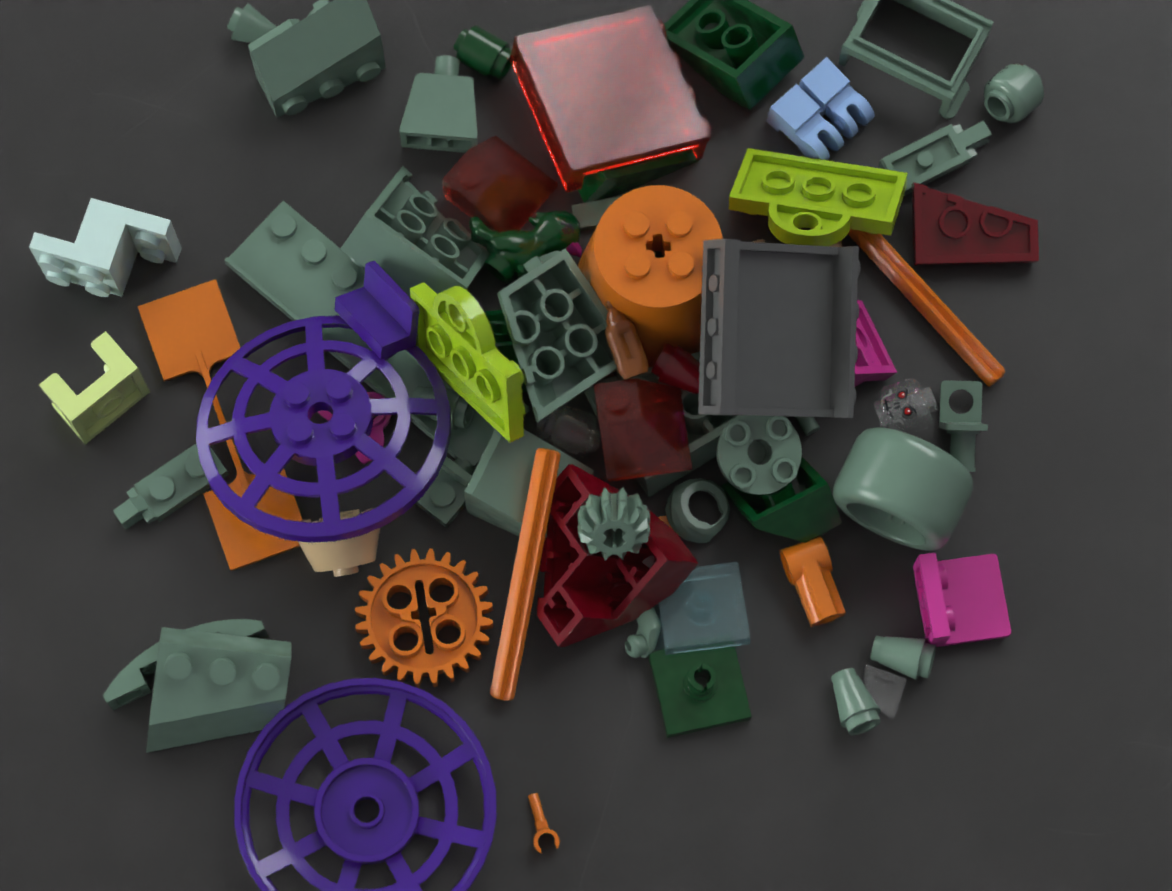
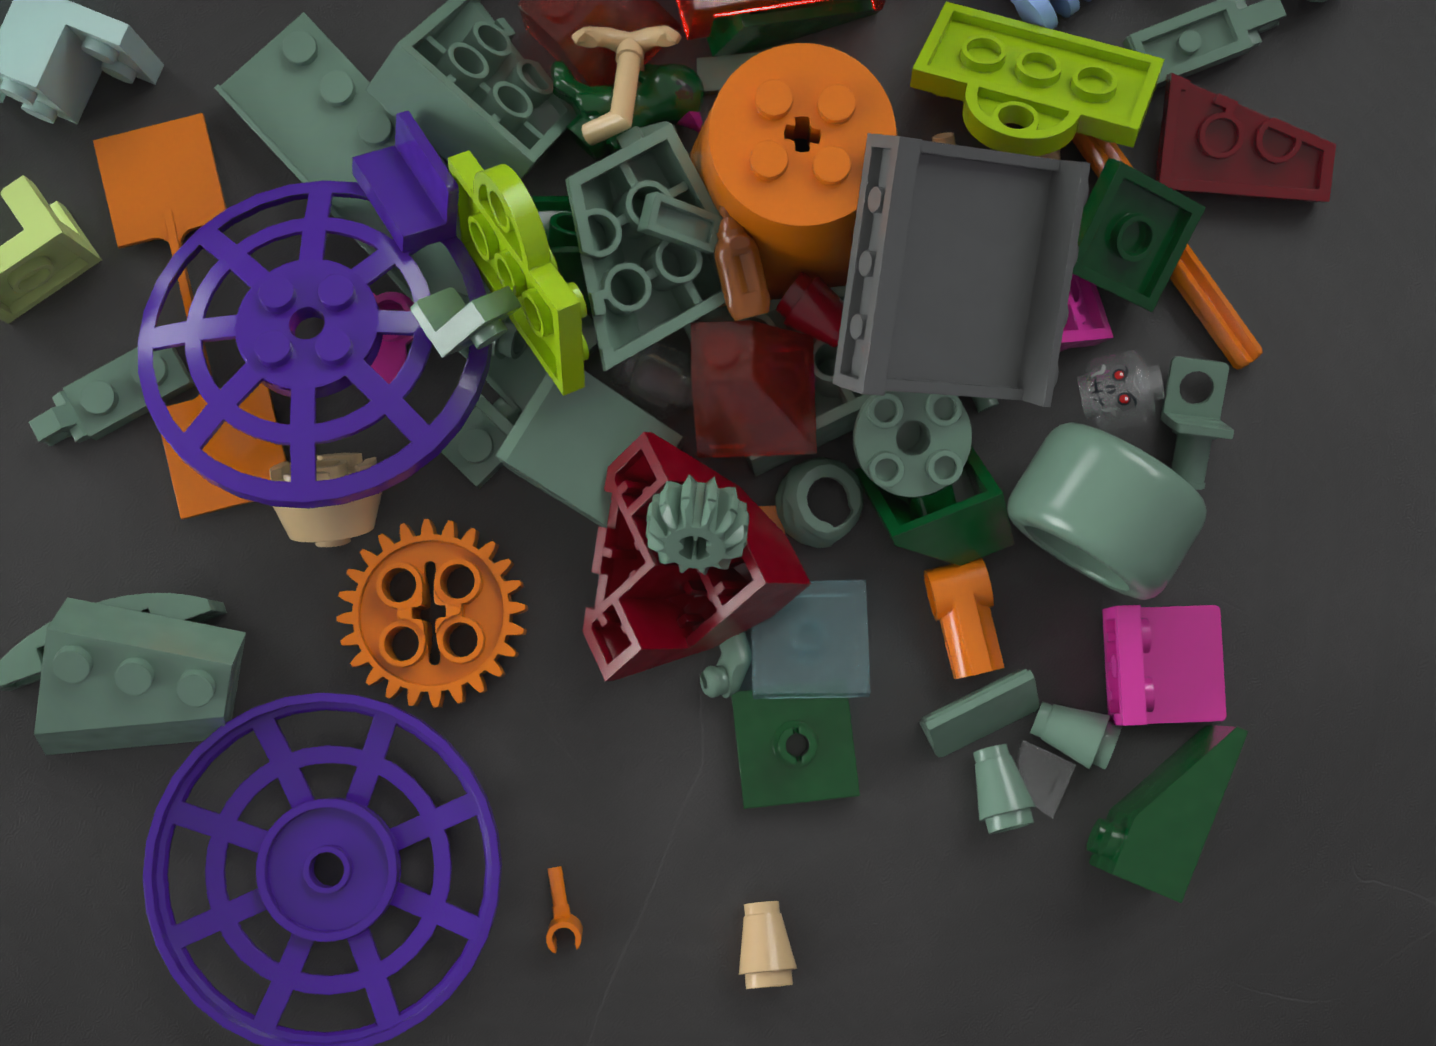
camera: 10 degrees right, 10 degrees up
(430, 404) = (456, 326): none -> sand green bracket
(525, 208) = (630, 53): none -> tan piece
(525, 574) = (572, 570): orange axle -> none
(578, 315) = (679, 222): none -> sand green piece
(695, 834) = (765, 947): none -> tan cone
(833, 648) = (981, 712): none -> sand green slope
(899, 296) = (1133, 234): none -> dark green tile
(967, 717) = (1165, 820): none -> dark green slope

